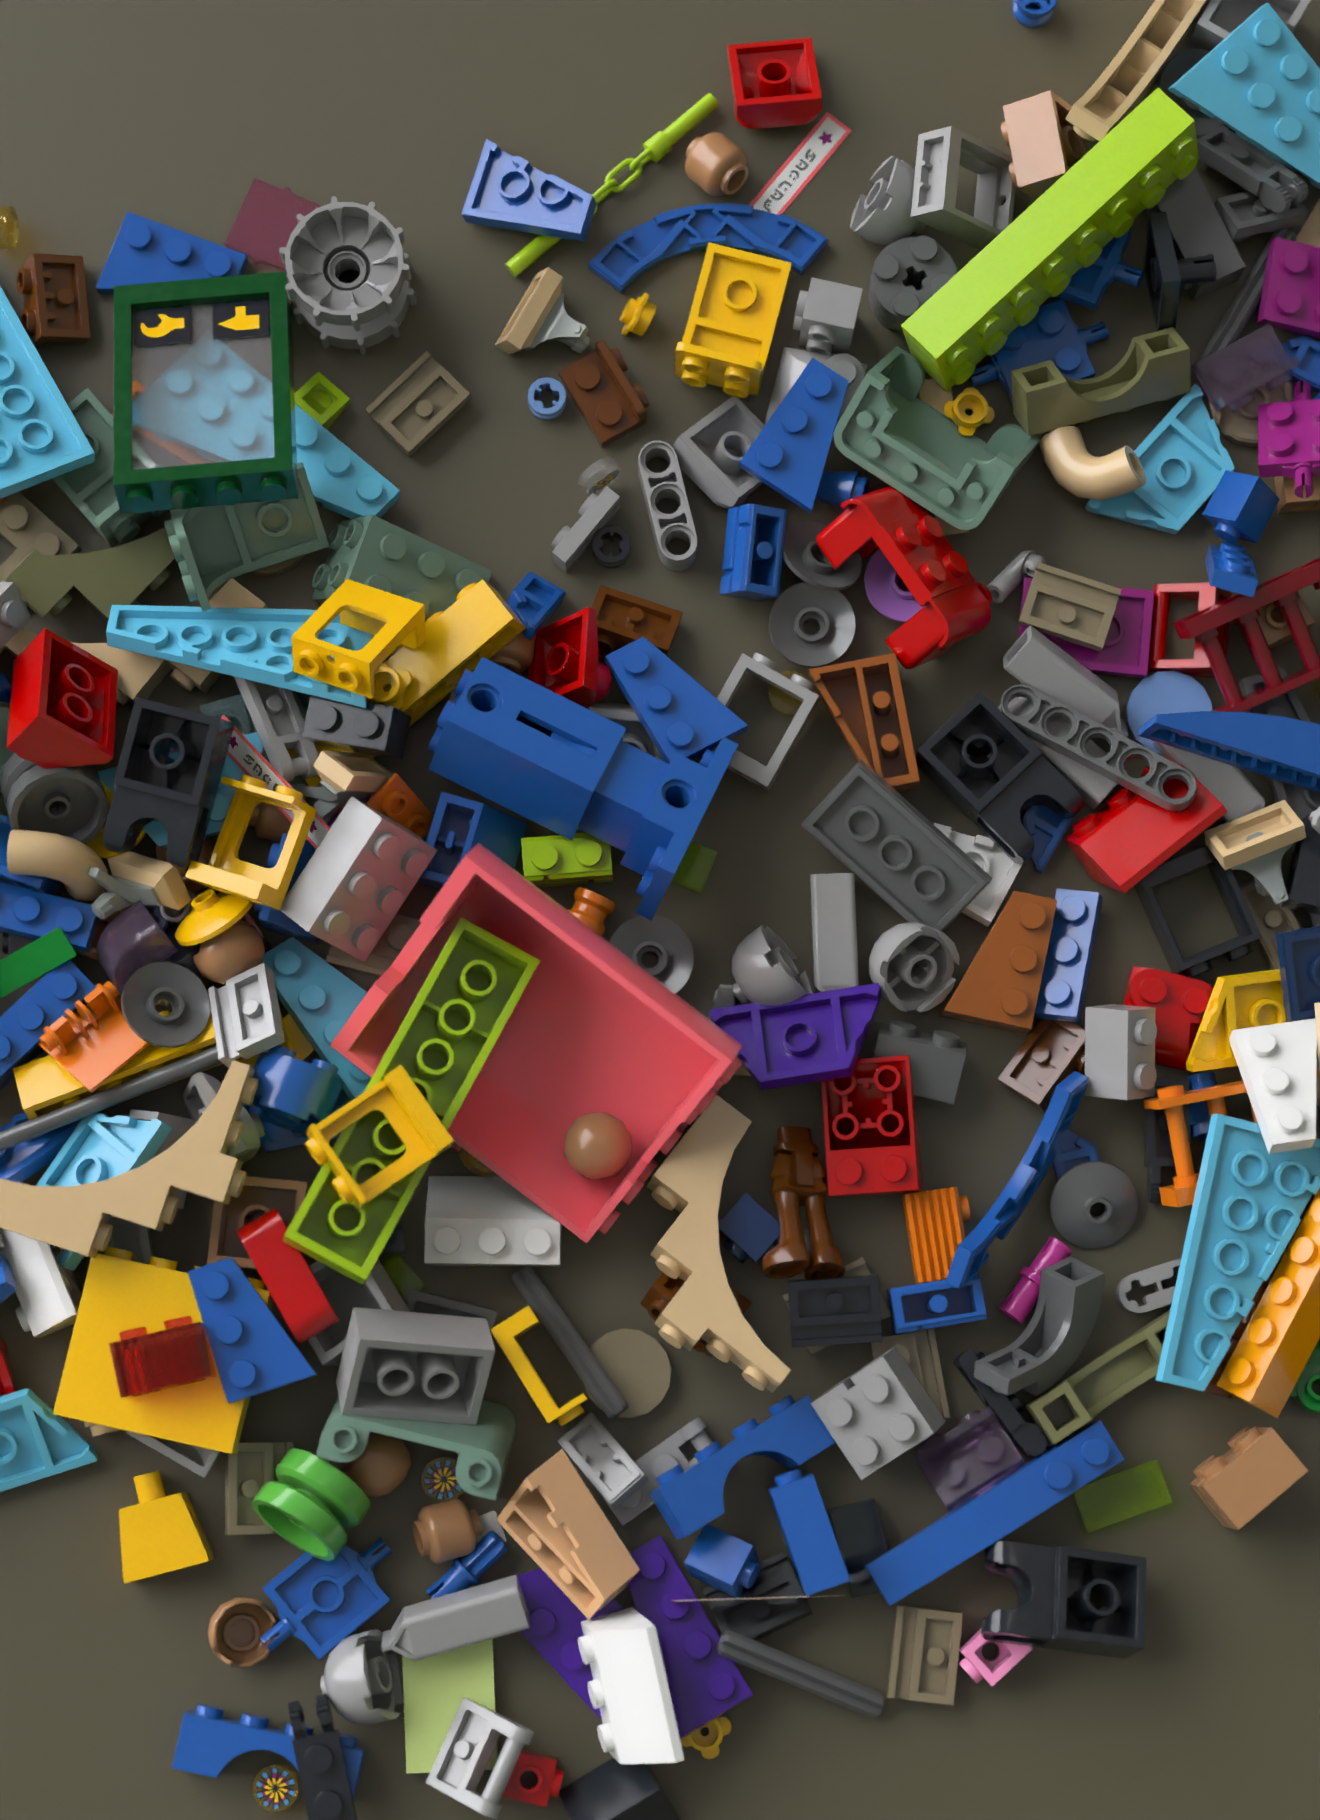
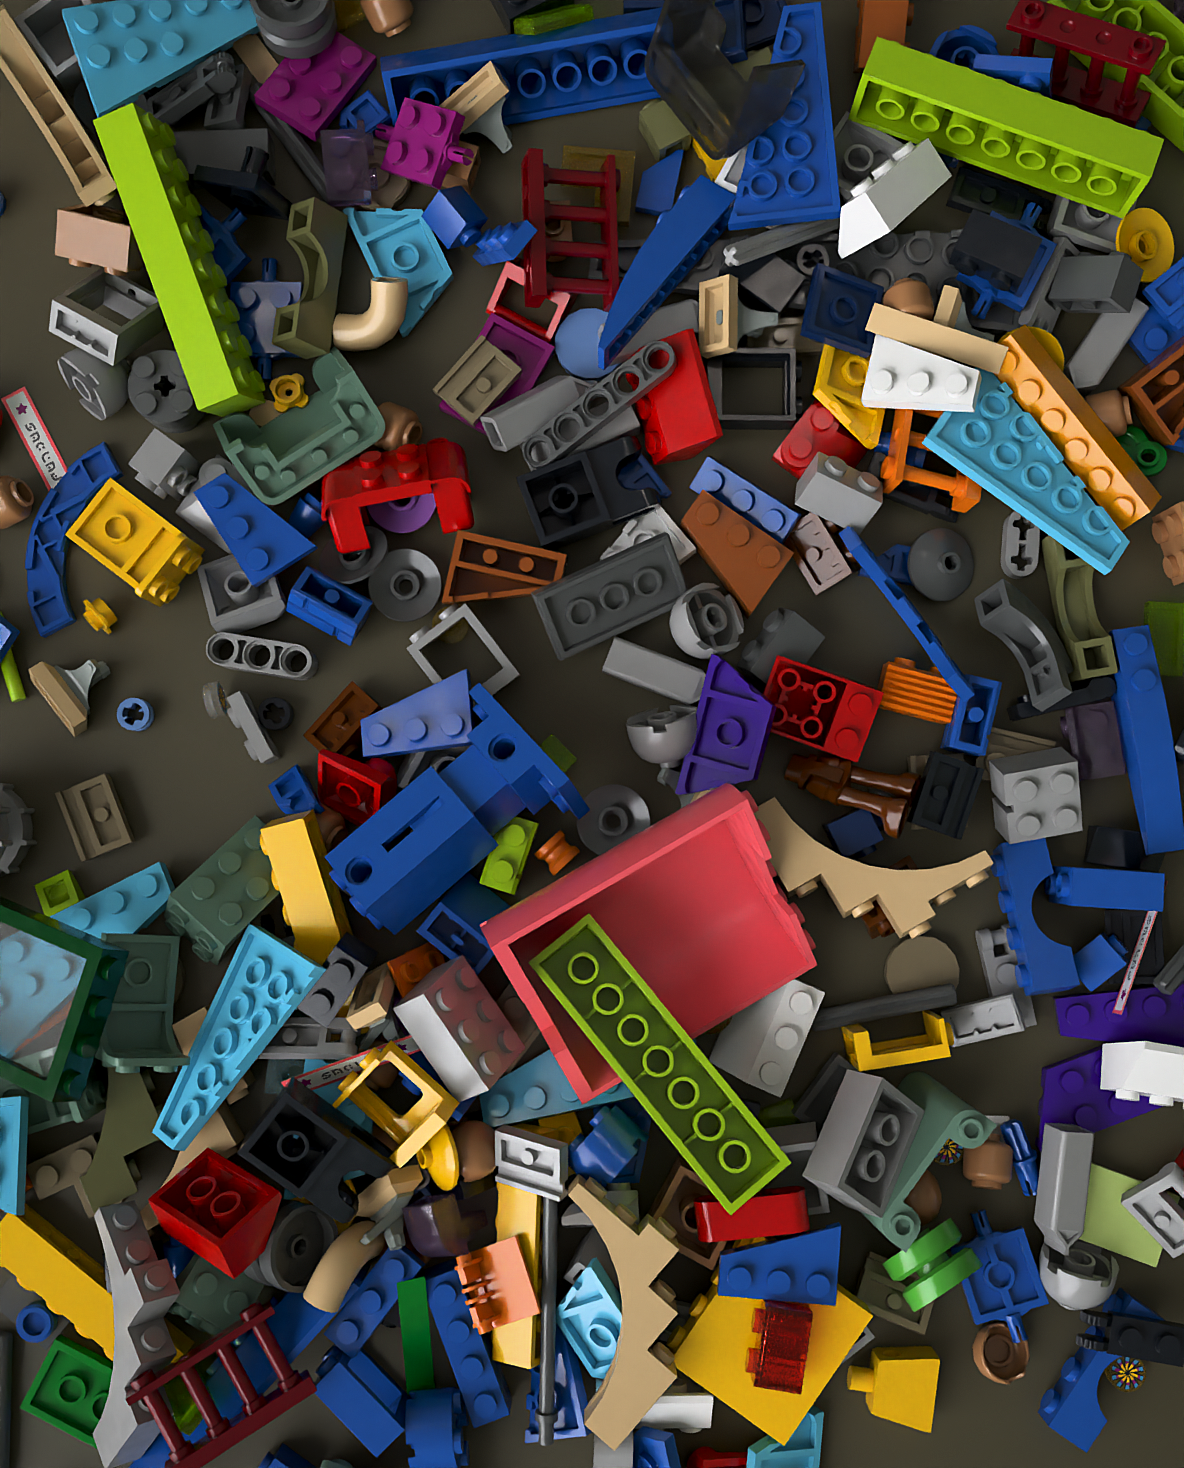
camera: 65 degrees left, 5 degrees up
(176, 990) = (478, 1211): dark grey dish -> none
(365, 608) = (244, 931): yellow window -> none
(399, 682) = (305, 945): yellow plate -> none
(408, 1116) = (676, 1074): yellow window -> none
(569, 1535) = (1036, 1071): light nougat wedge -> none
(598, 1145) = (744, 923): medium nougat hair -> none
(605, 394) = (151, 667): reddish brown bracket -> none
(982, 546) = (401, 427): none -> medium nougat head
(1013, 574) = (432, 416): light grey arm -> none
(1026, 1291) = (982, 639): dark pink pin -> none

